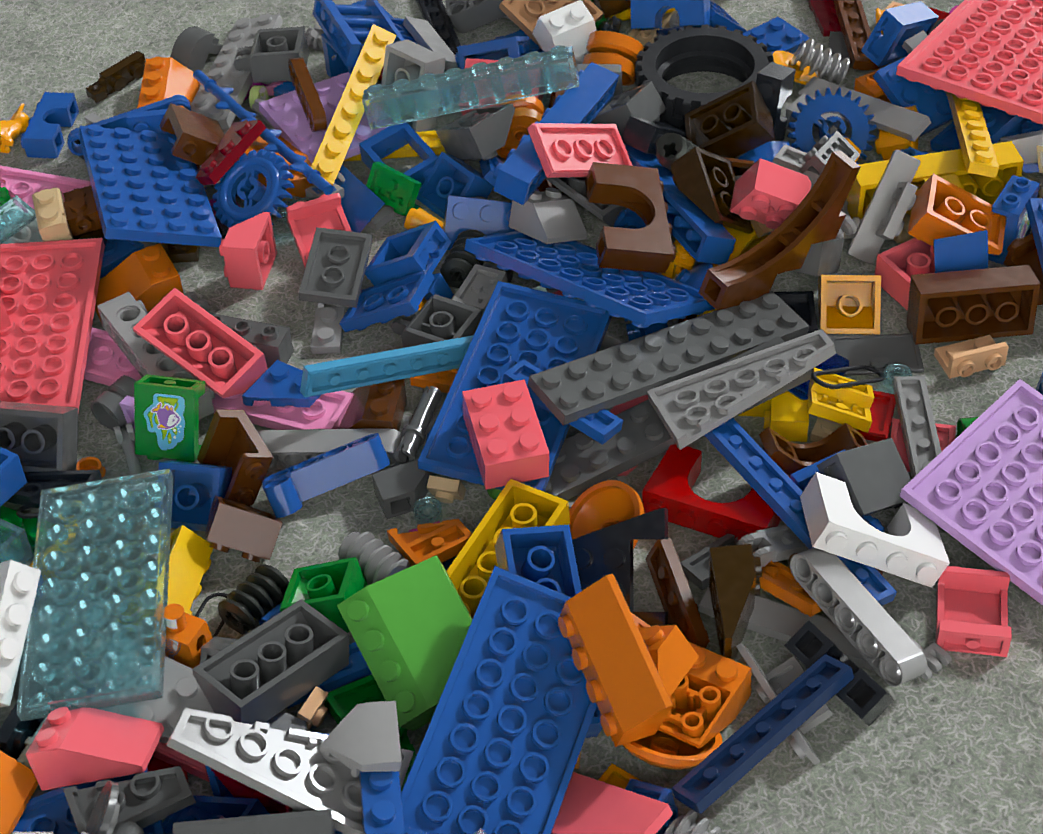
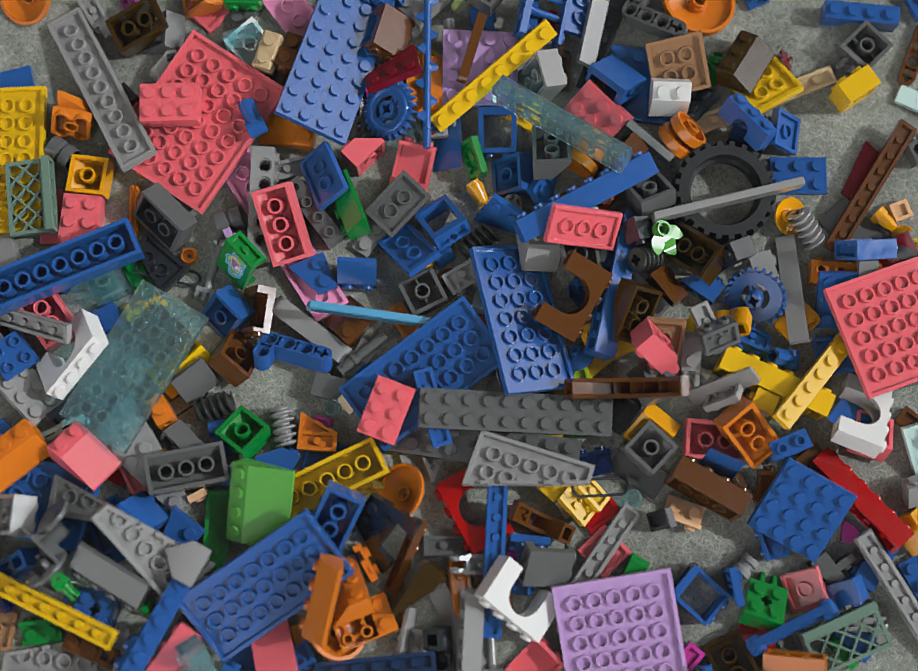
camera: 30 degrees right, 35 degrees up
(83, 279) = (254, 122): none -> blue piece
(203, 577) = (194, 380): none -> dark grey slope
(219, 282) = (323, 175): none -> blue plate
(276, 296) = (351, 212): none -> green slope
(337, 340) = (357, 273): none -> blue slope
(681, 123) = (665, 240): none -> plate
(714, 62) = (728, 199): none -> light grey tile
(864, 310) = (649, 448): none -> dark grey slope
(953, 363) = (661, 519): none -> black tile

